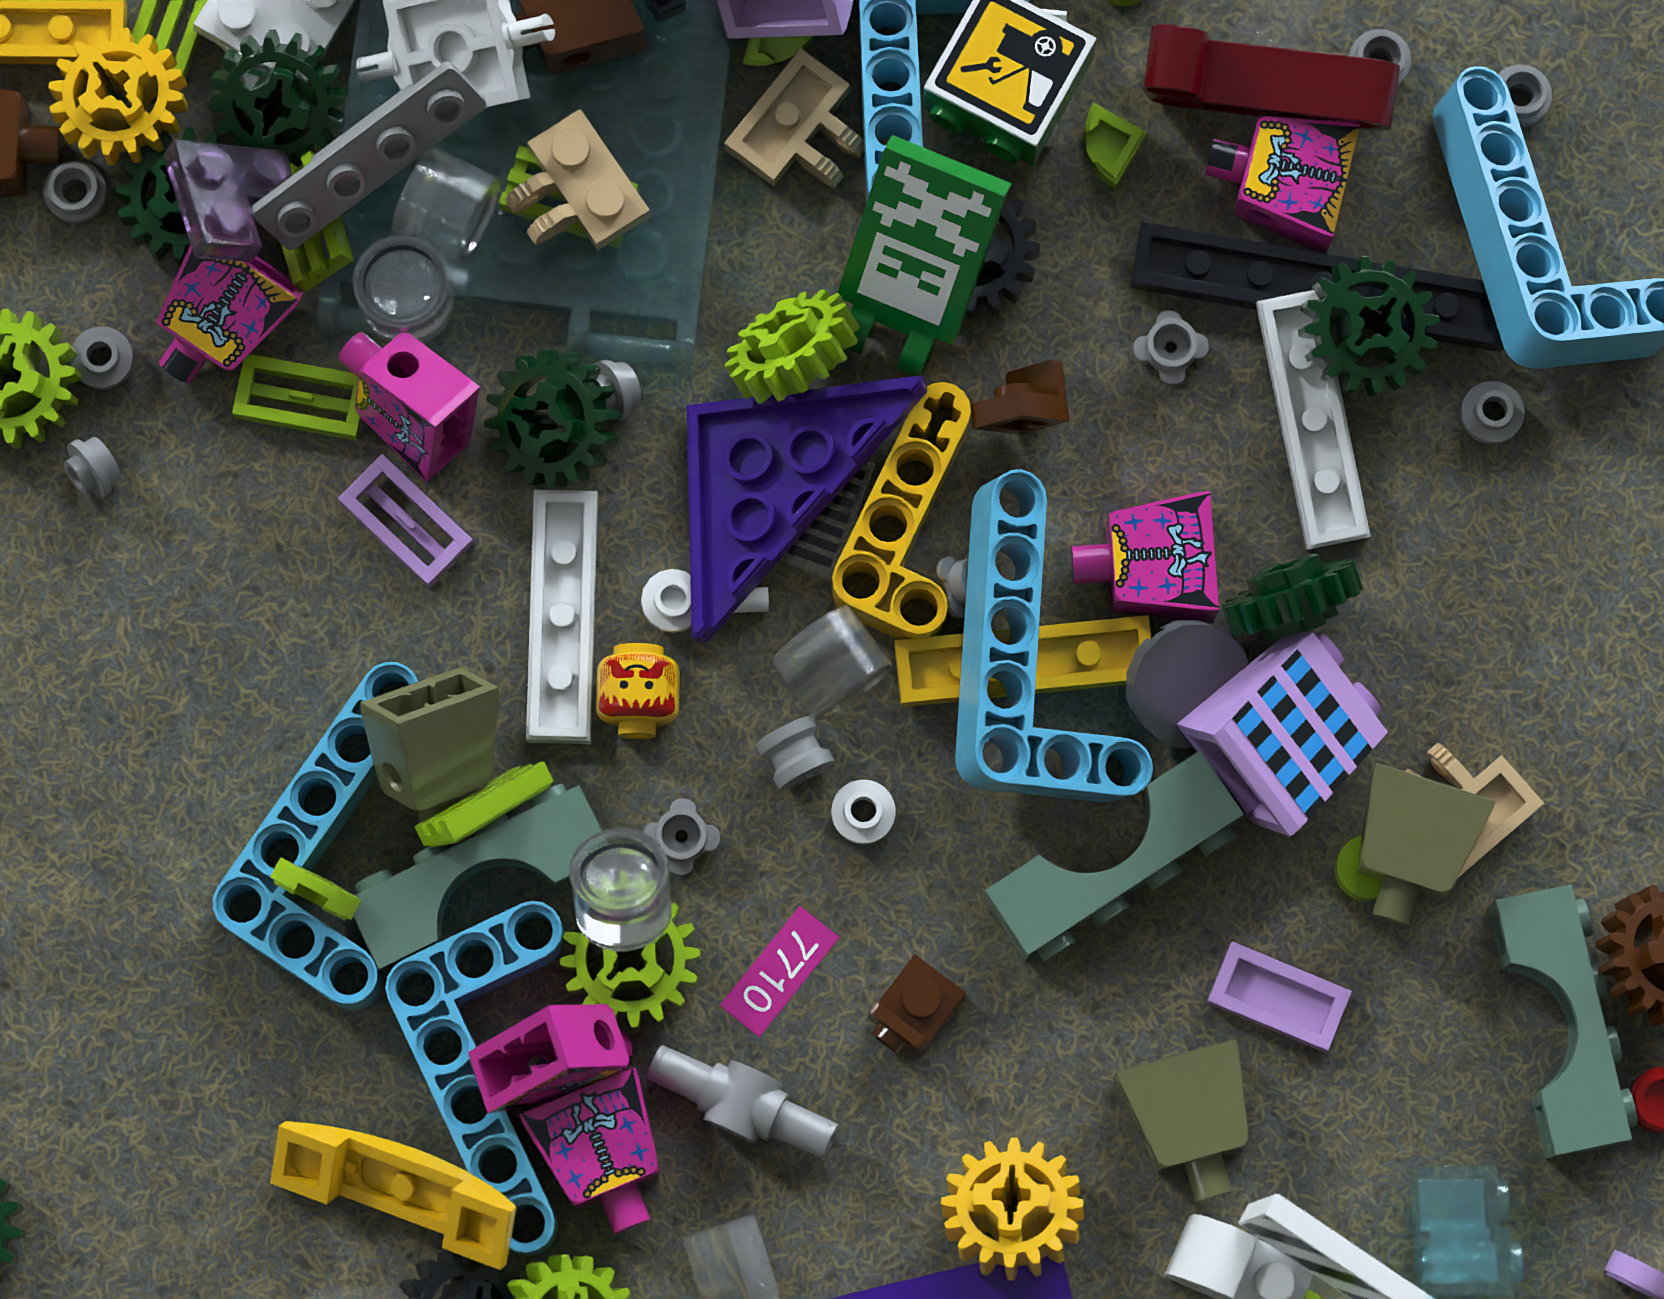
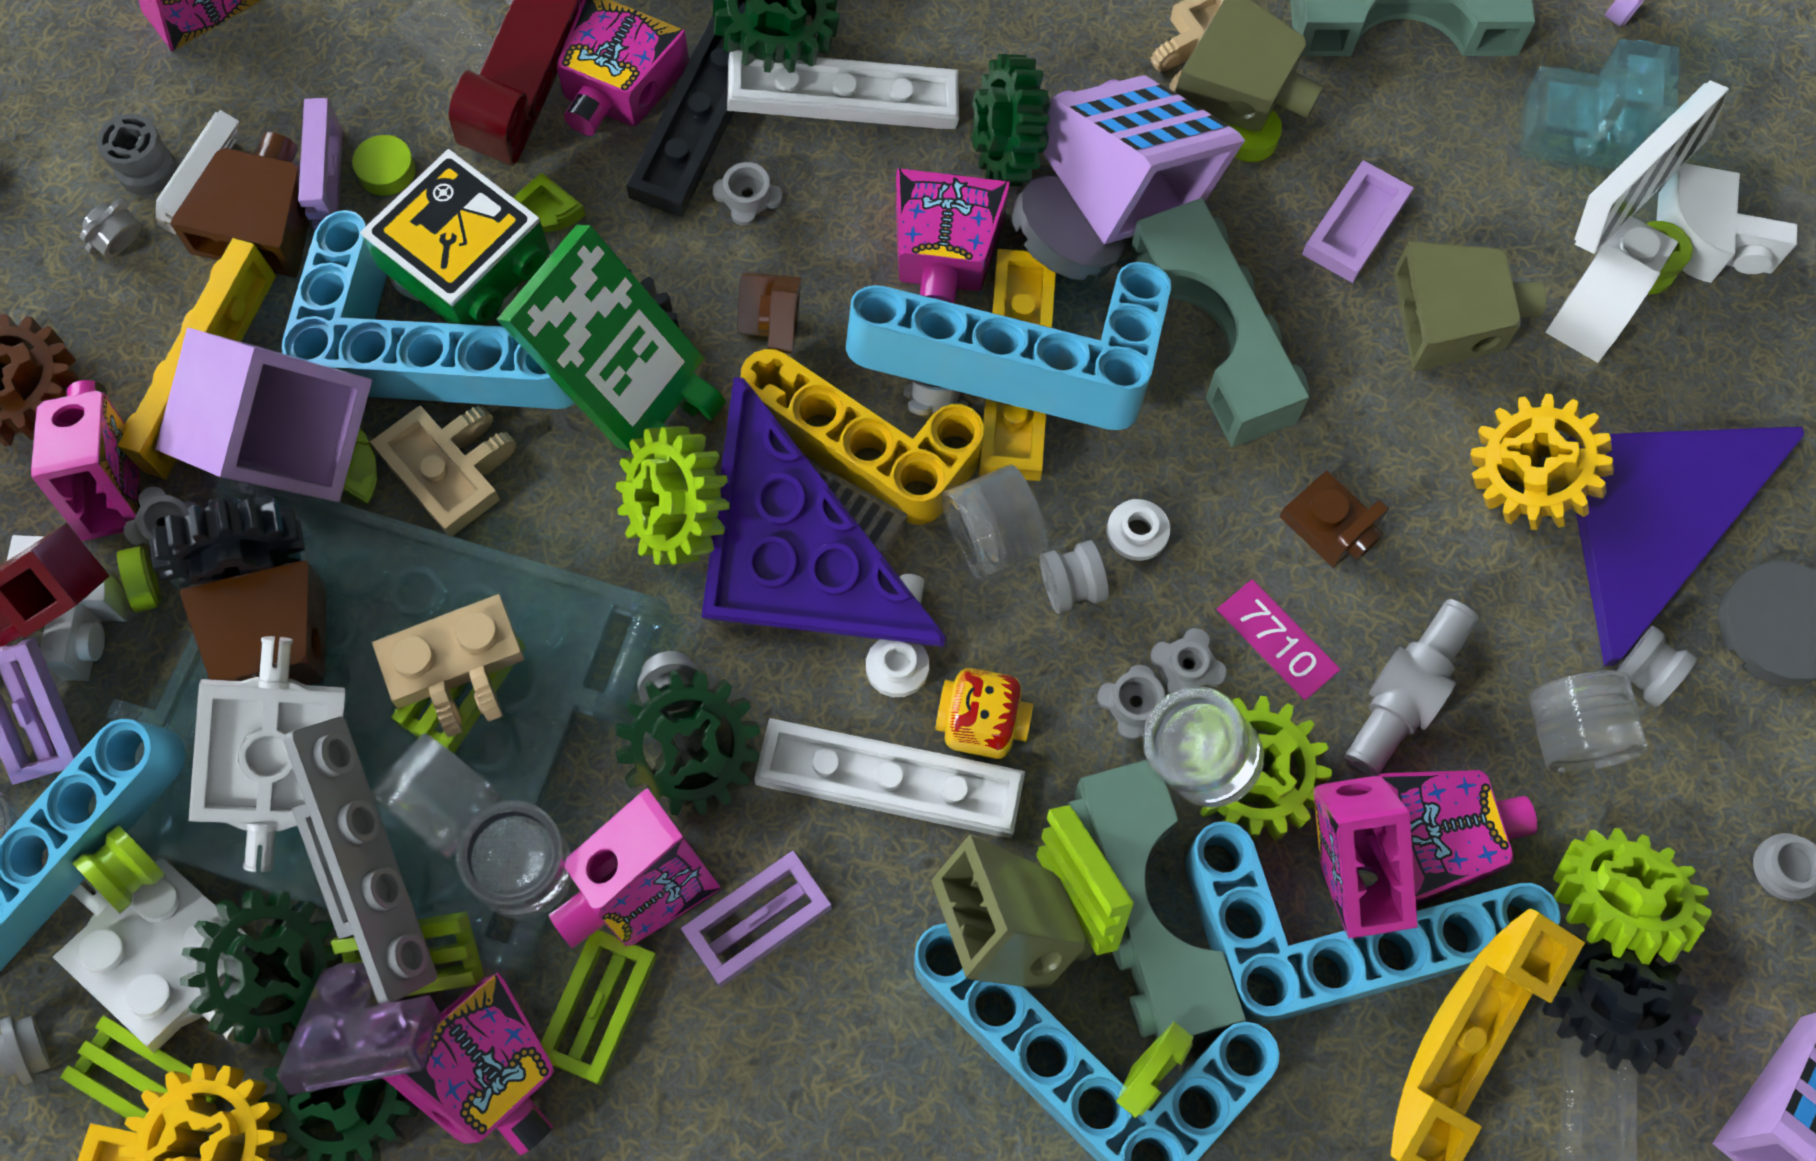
camera: 80 degrees left, 10 degrees down
(726, 899) = (1192, 647): none -> light grey plate

